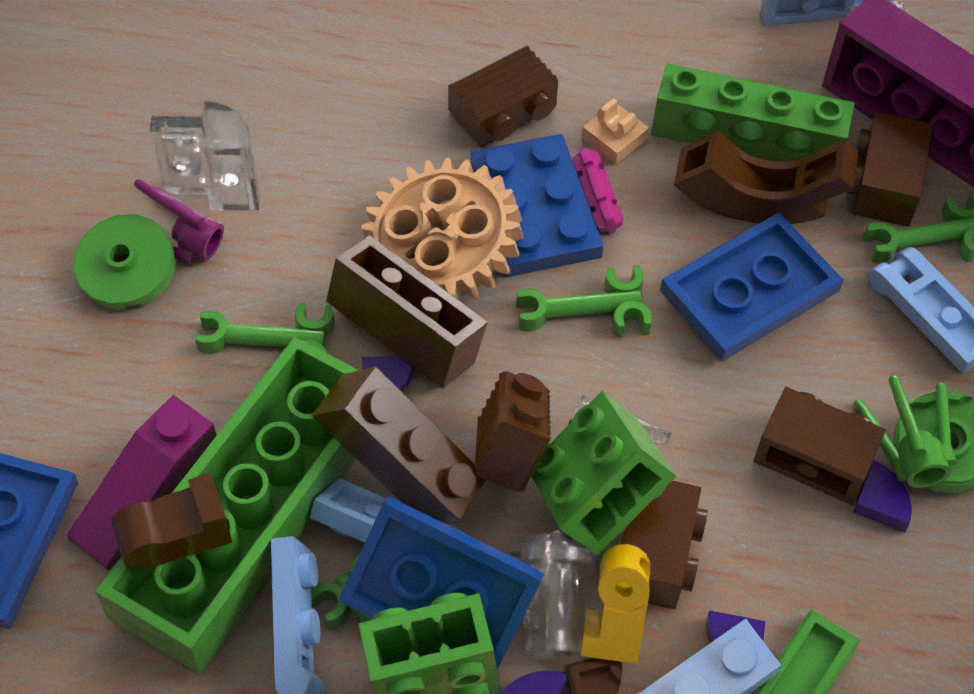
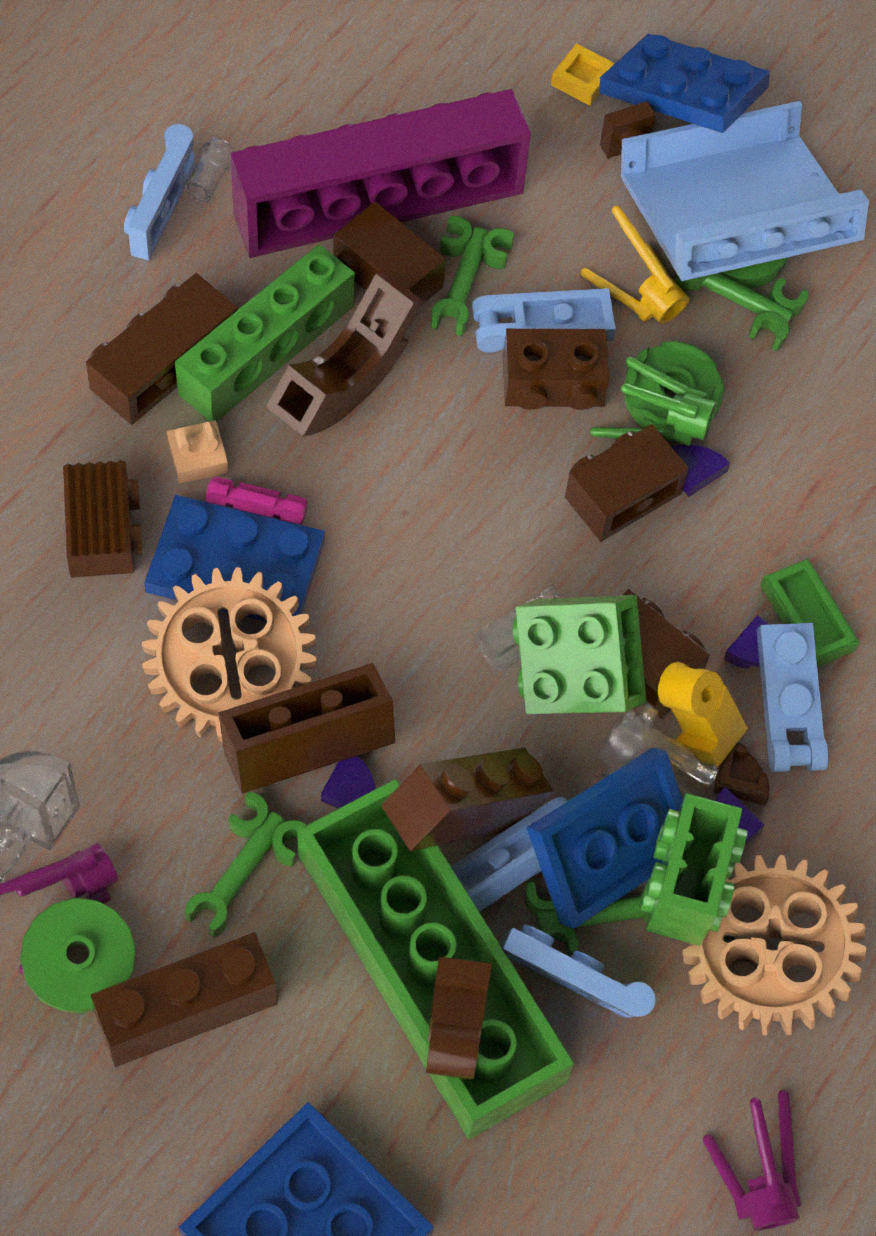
camera: 65 degrees left, 5 degrees up
(119, 342) = (184, 999): none -> reddish brown brick
(145, 470) = (351, 1044): magenta slope -> none
(513, 430) = (494, 701): reddish brown brick -> none
(621, 298) = (384, 549): bright green bar -> none
(649, 44) = (139, 363): none -> reddish brown brick
(751, 286) = (438, 440): blue plate -> none
(890, 335) = (555, 368): none -> reddish brown brick

